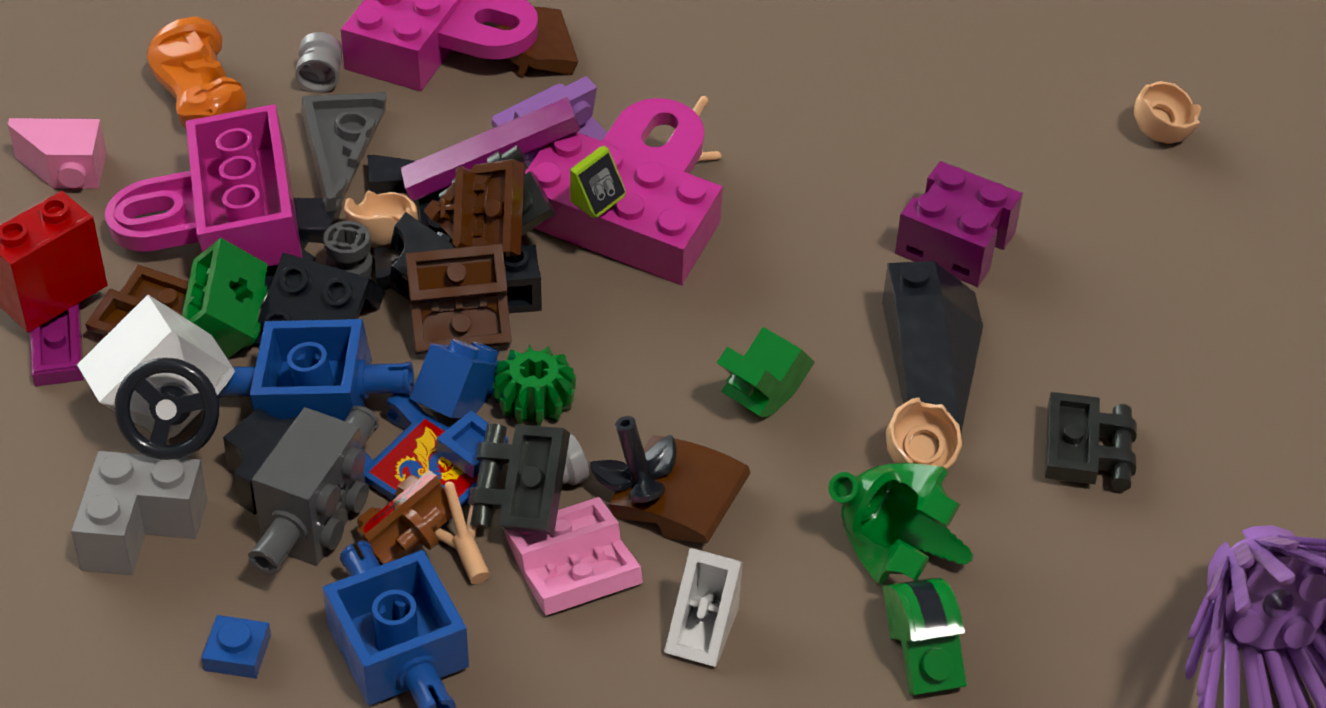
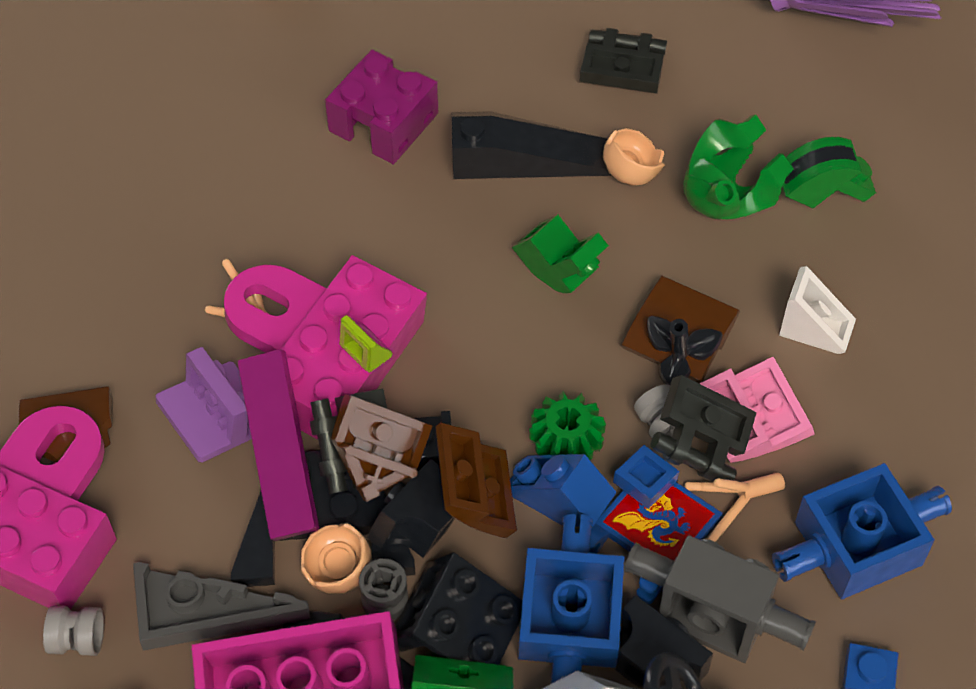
camera: 85 degrees left, 10 degrees up
(408, 519) = (721, 511): dark orange hips -> none

